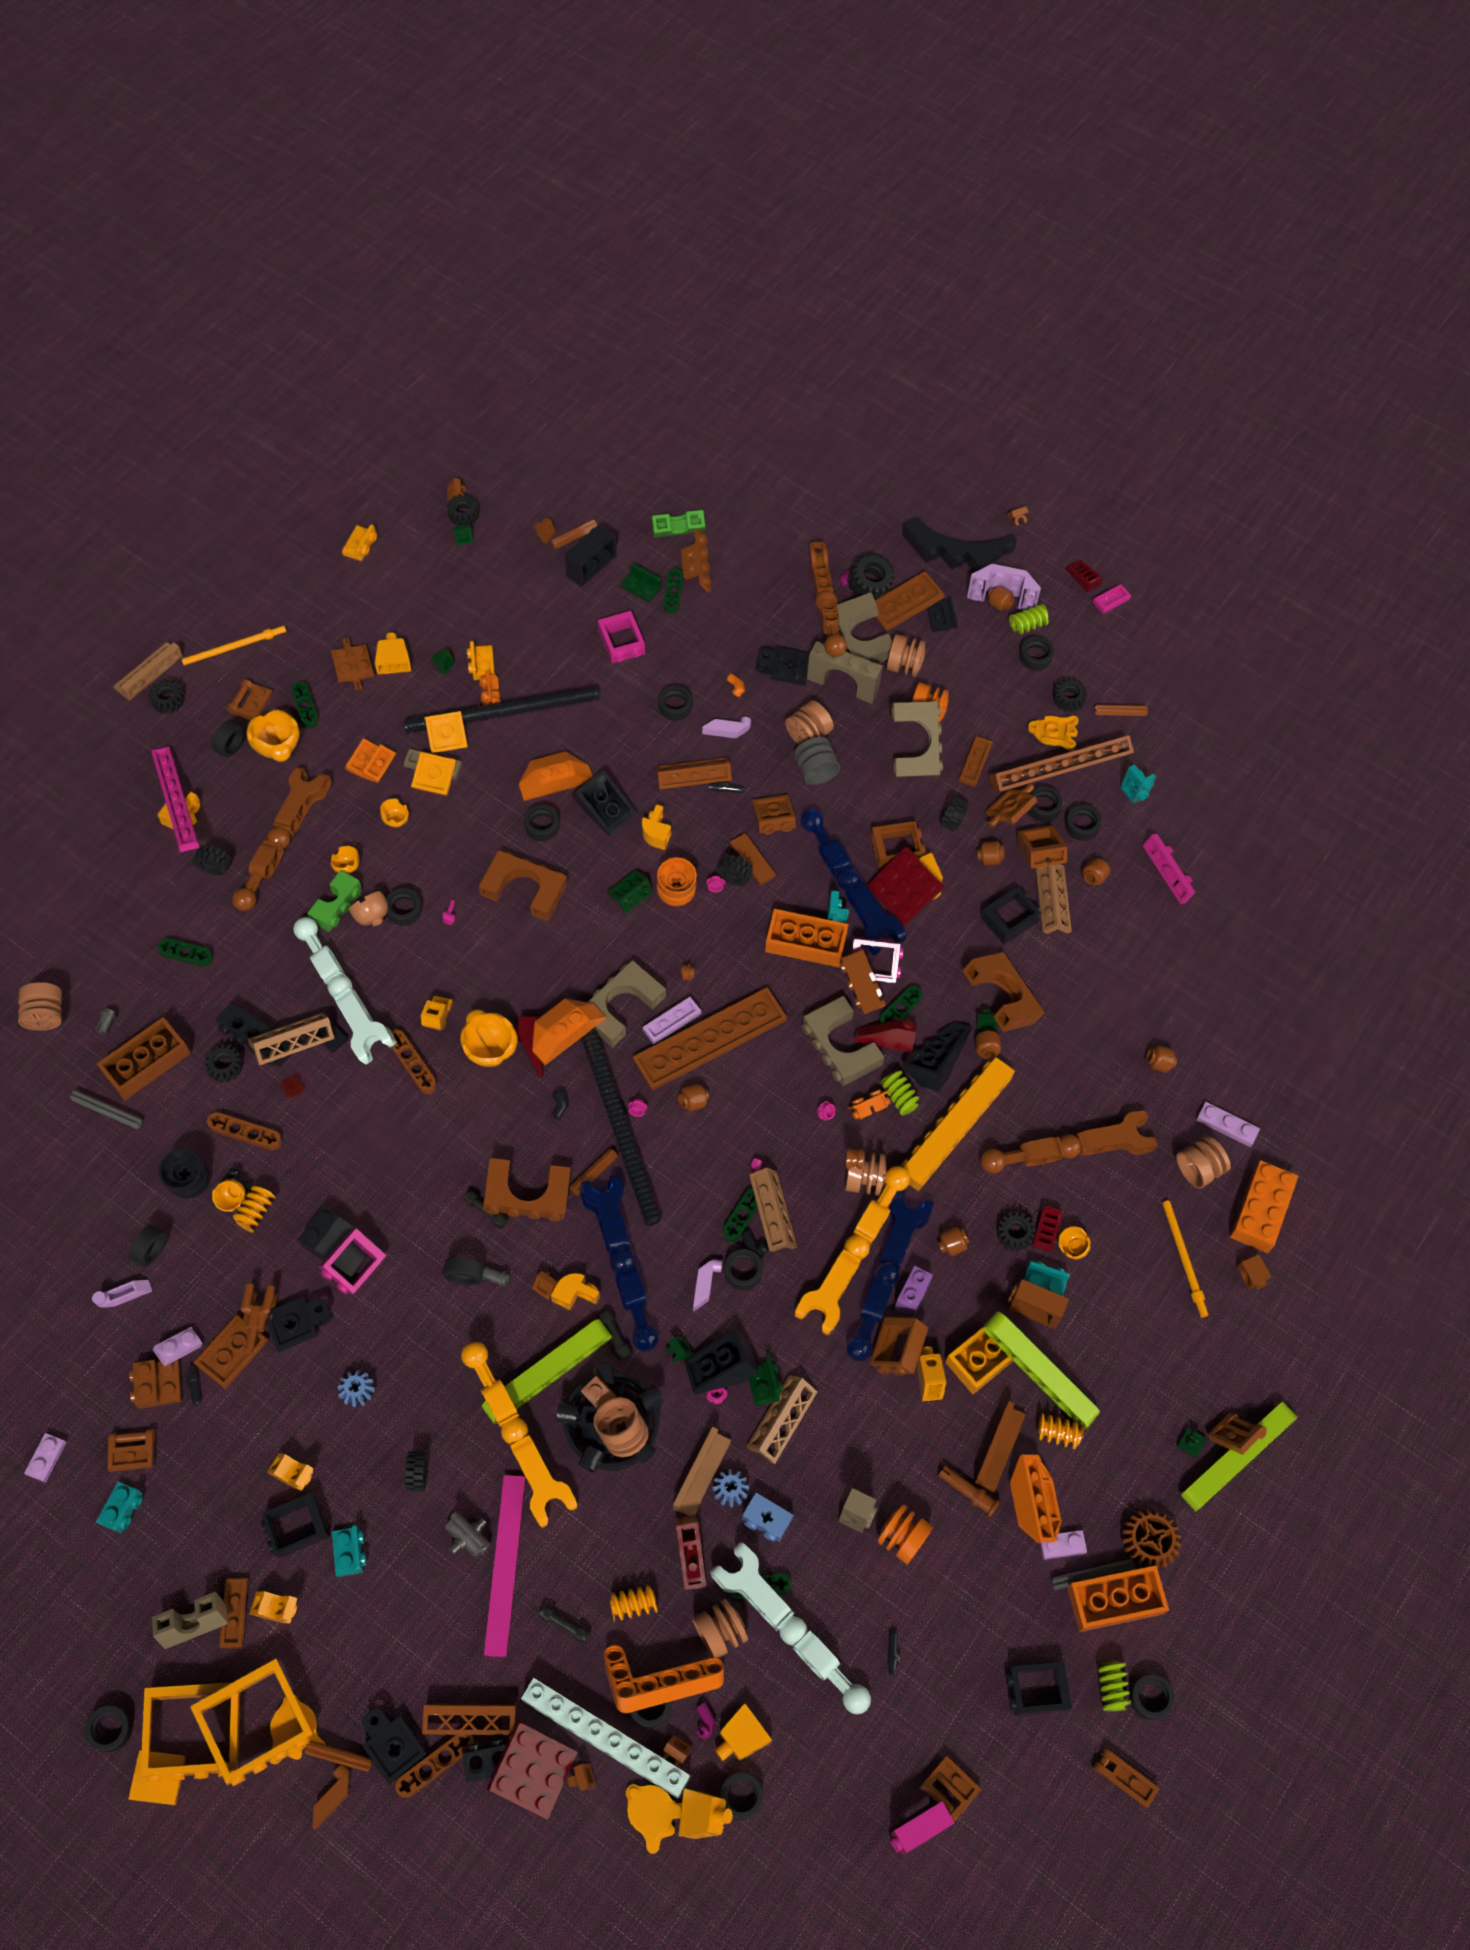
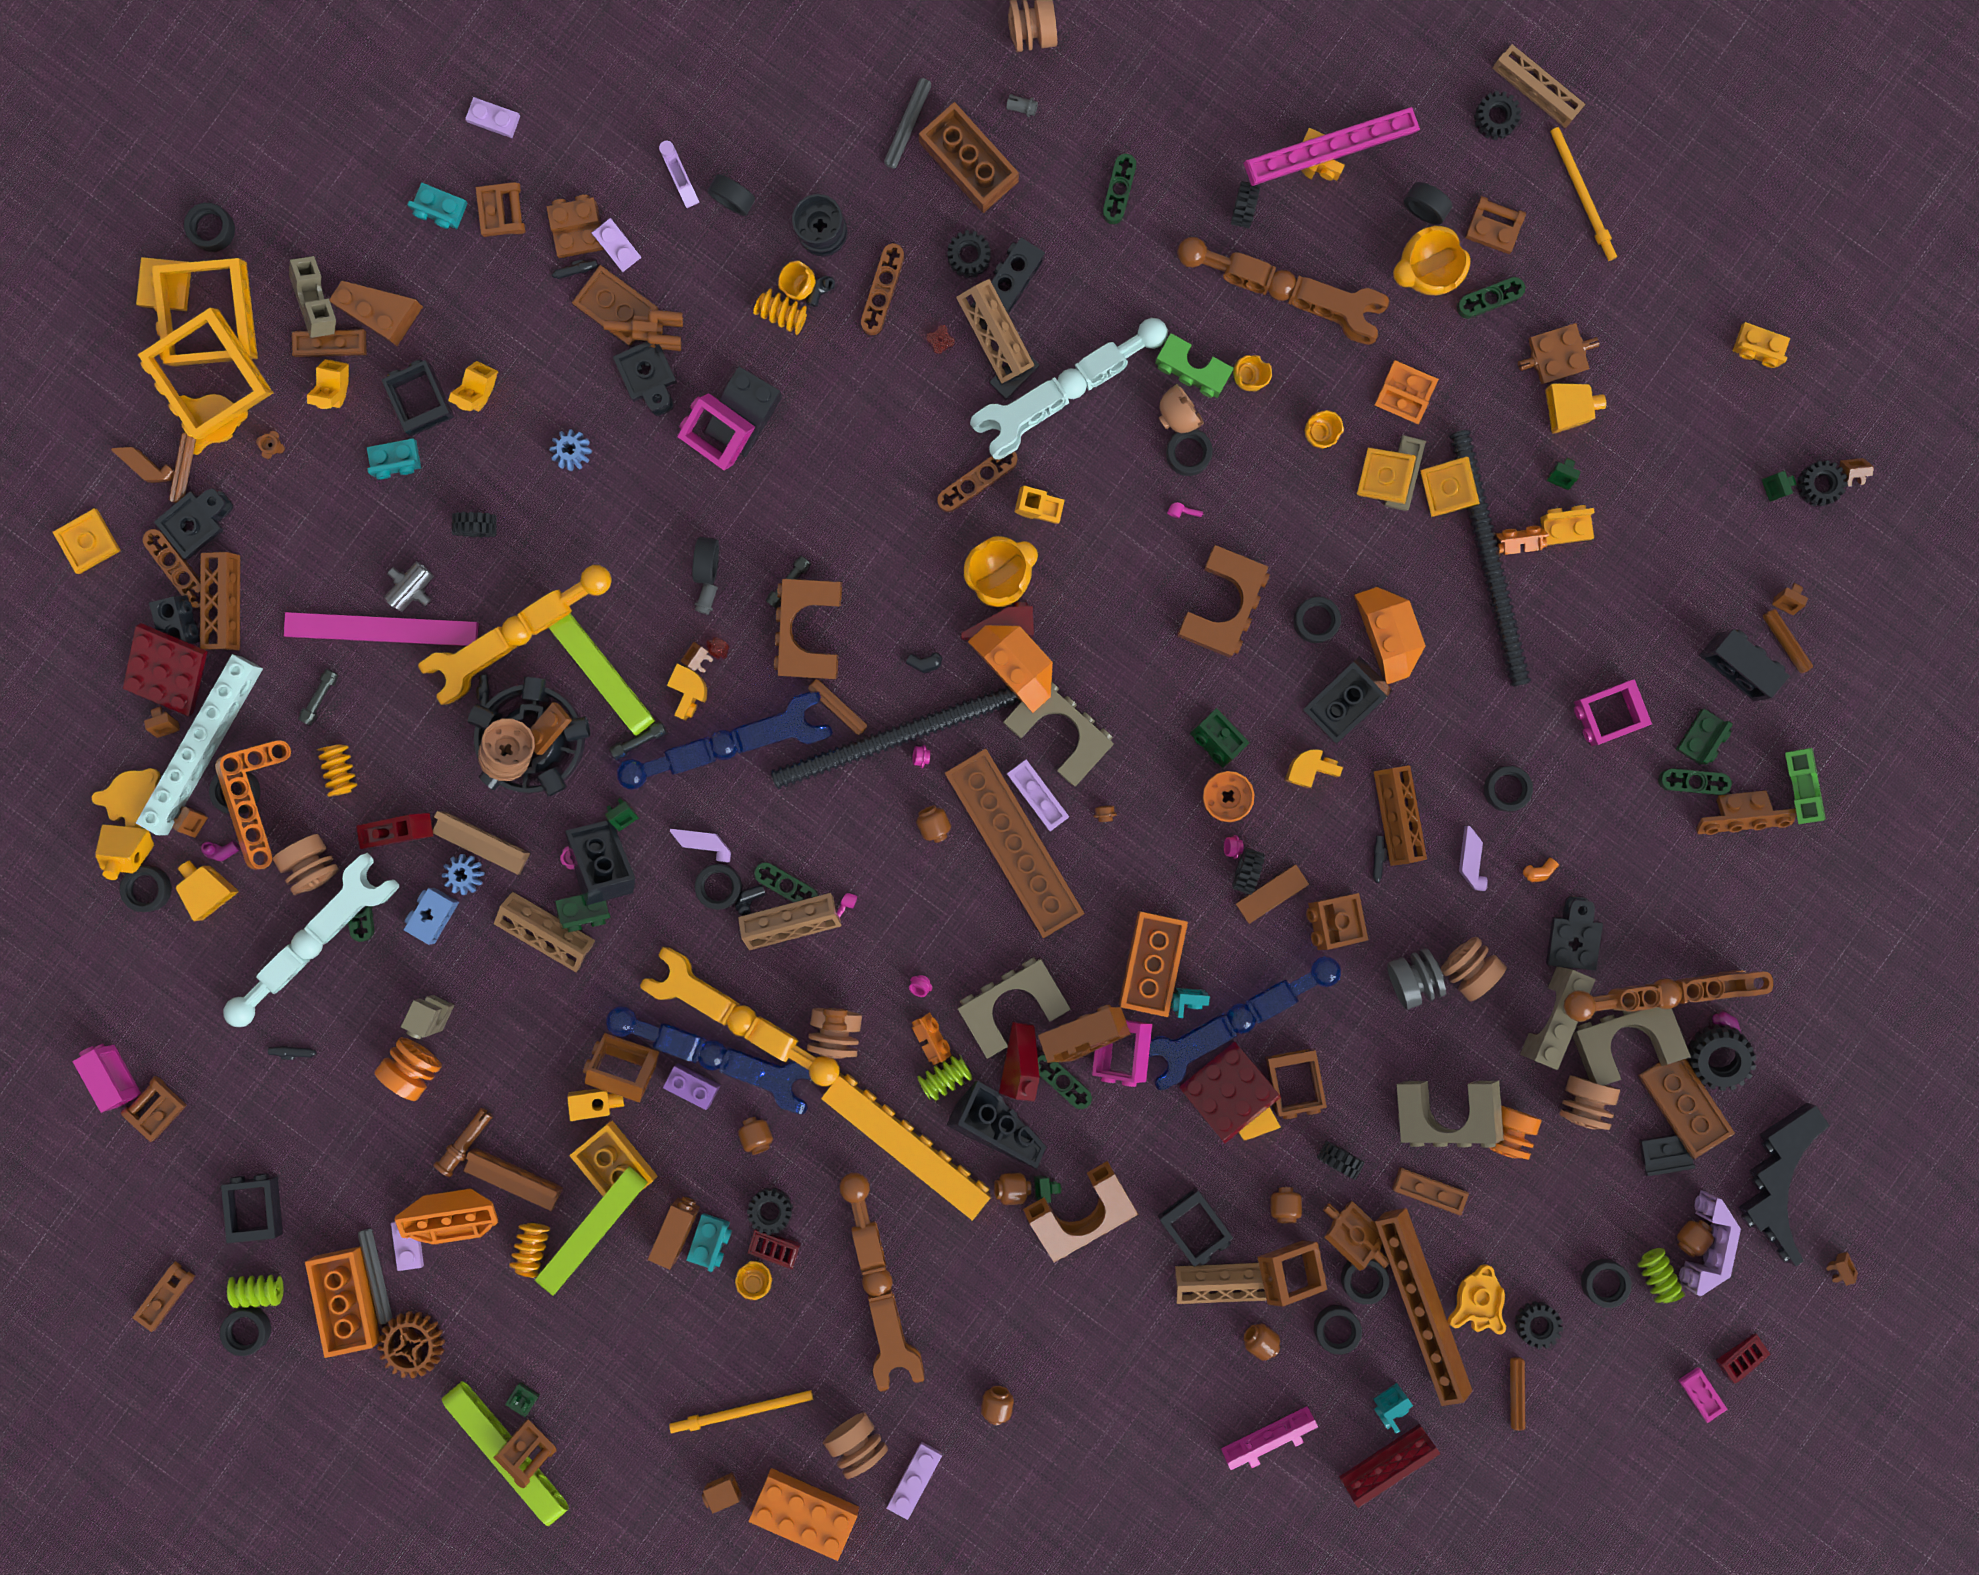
camera: 90 degrees right, 25 degrees up
(209, 1562) = (378, 310): none -> dark orange wedge
(321, 1676) = (263, 443): none -> dark orange plate
(401, 1860) = (86, 541): none -> light orange tile
(538, 1264) = (717, 648): none -> clear red plate
(570, 1471) = (483, 690): none -> black piece
(1182, 795) = (1389, 1465): none -> dark red fence

